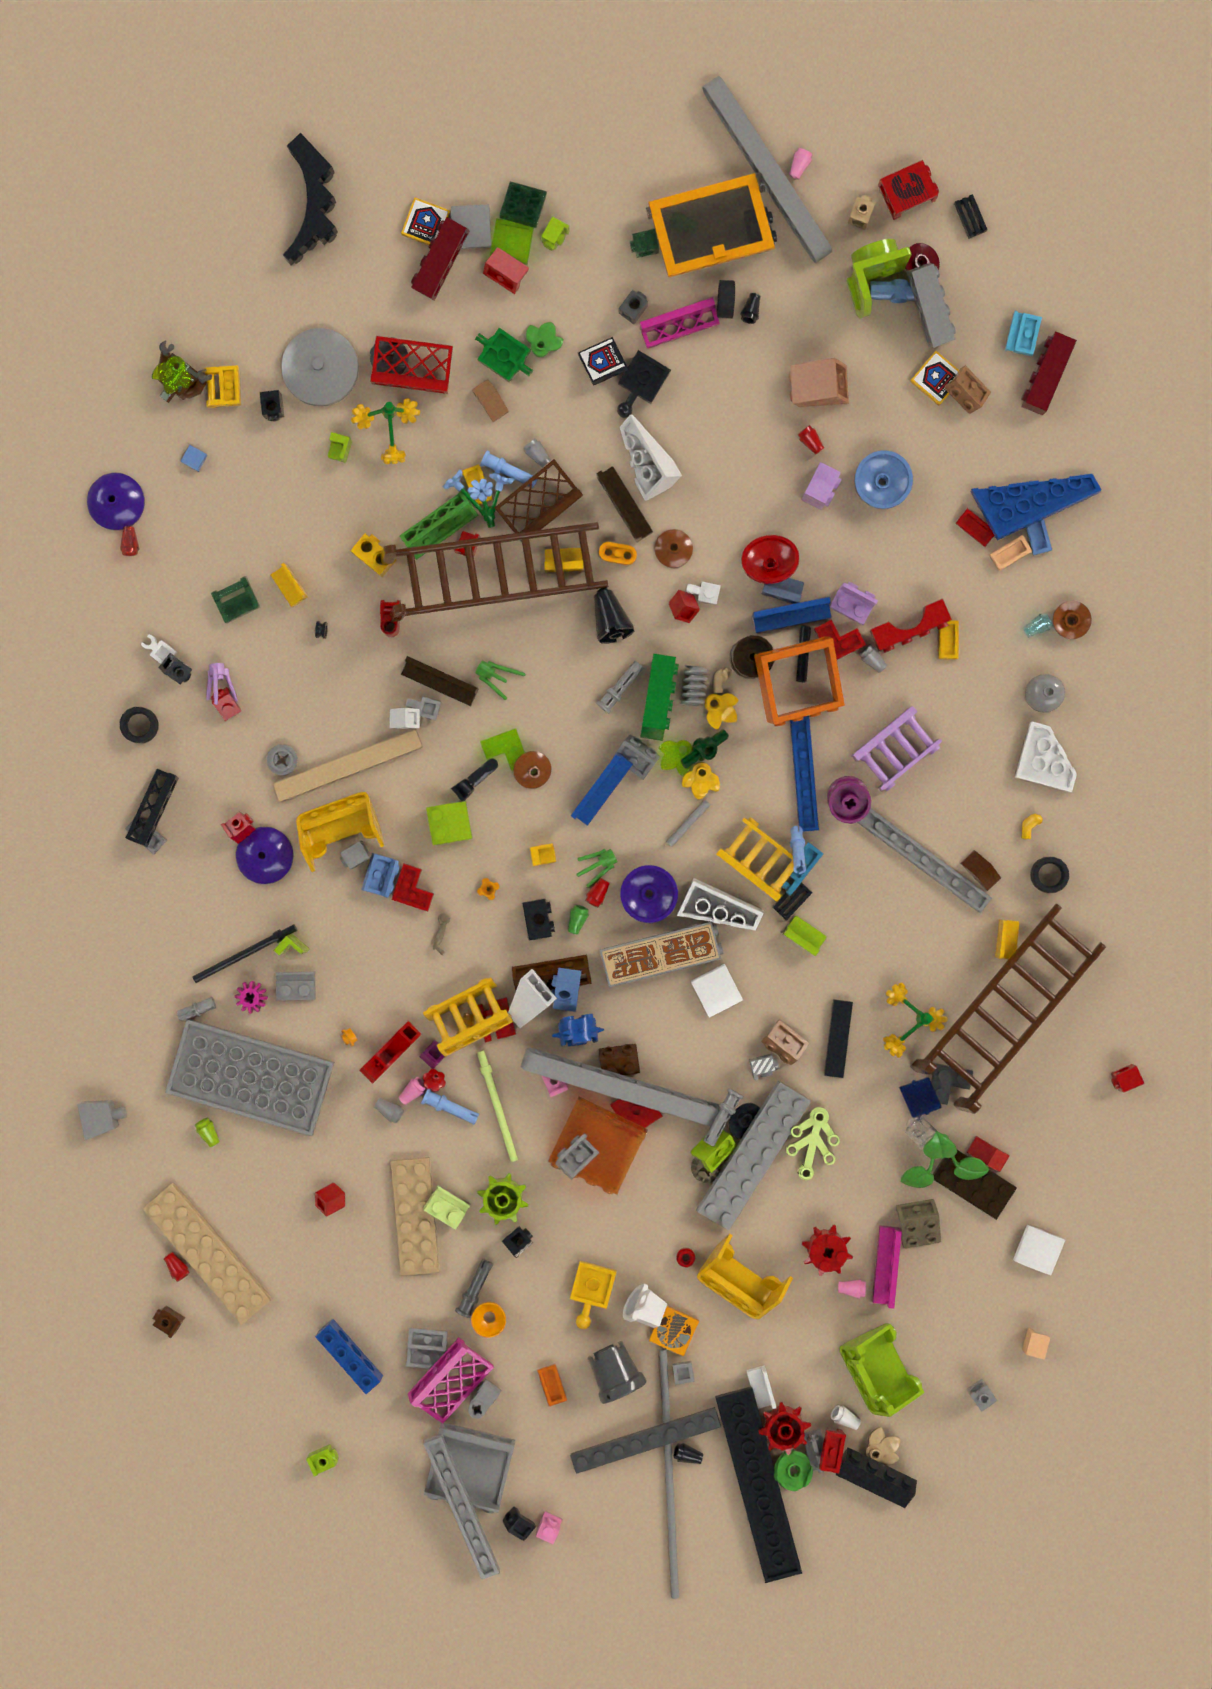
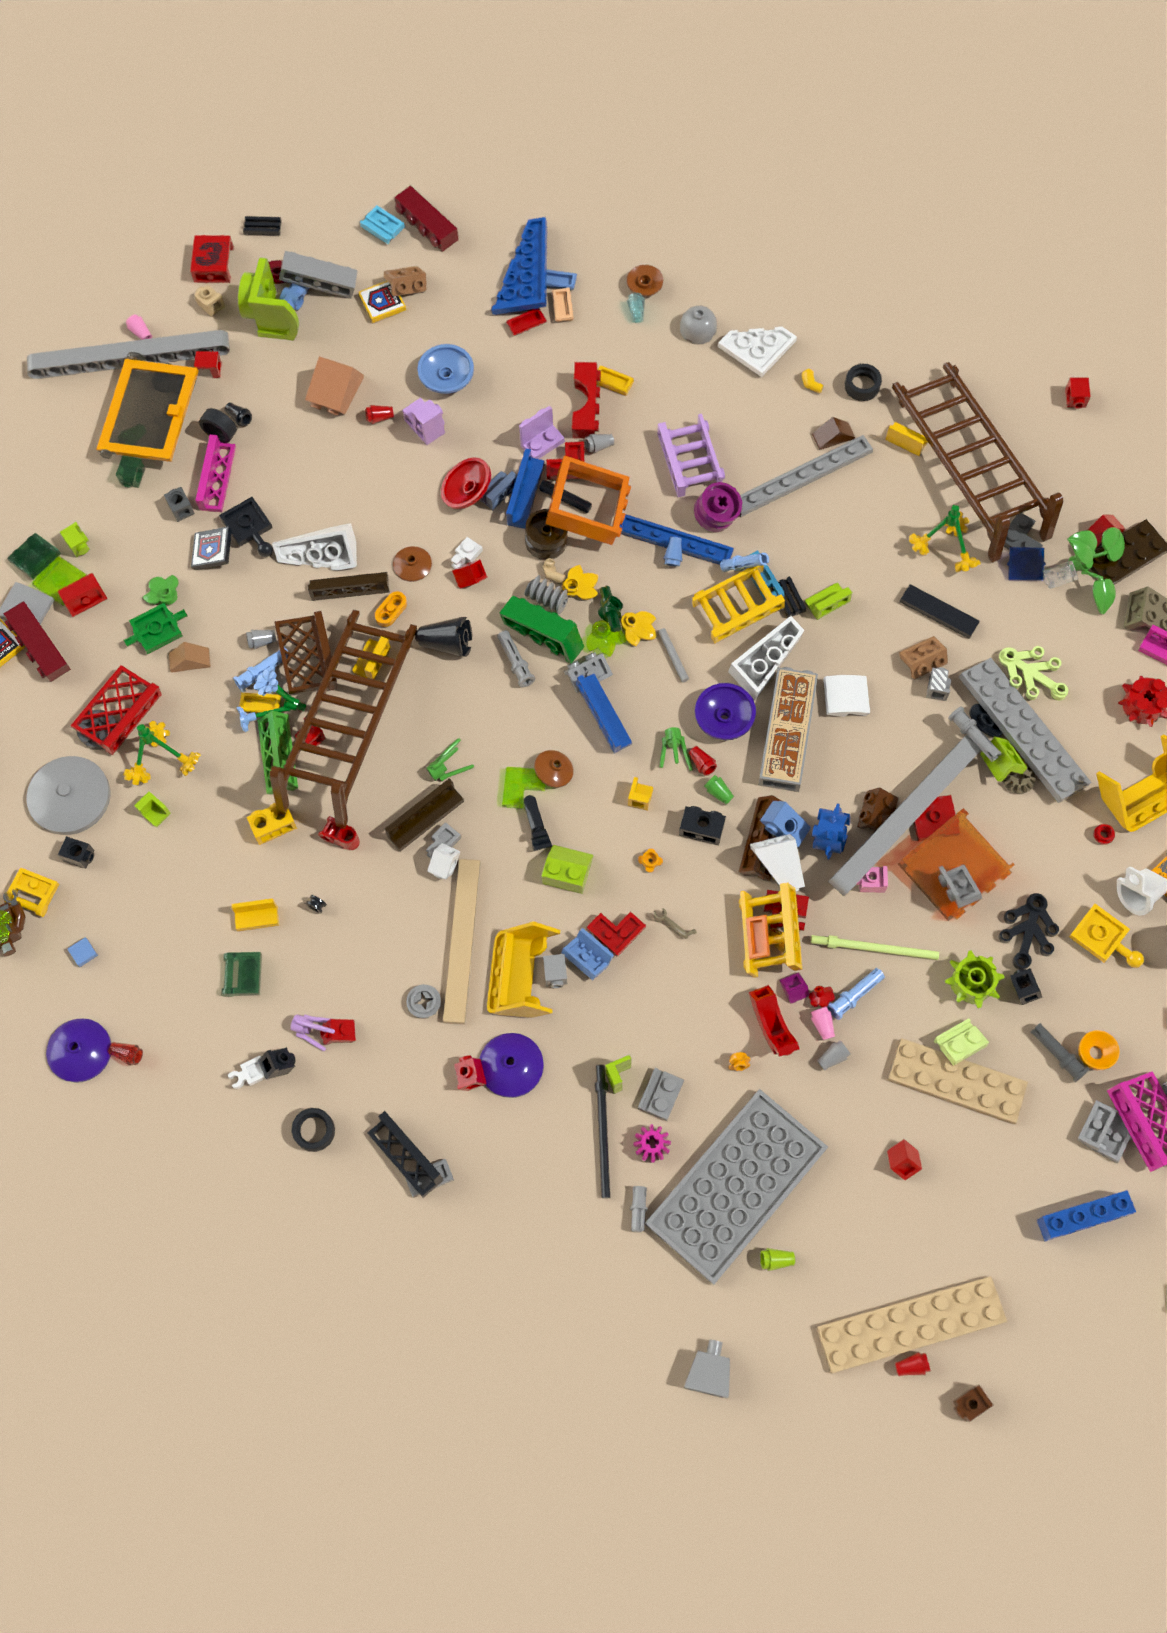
camera: 60 degrees left, 20 degrees down
(455, 1009) = (757, 937): none -> orange tile
(571, 1226) = (1030, 927): none -> black plant
(787, 779) = (673, 554): none -> medium blue cone
(790, 251) = (209, 360): none -> red panel

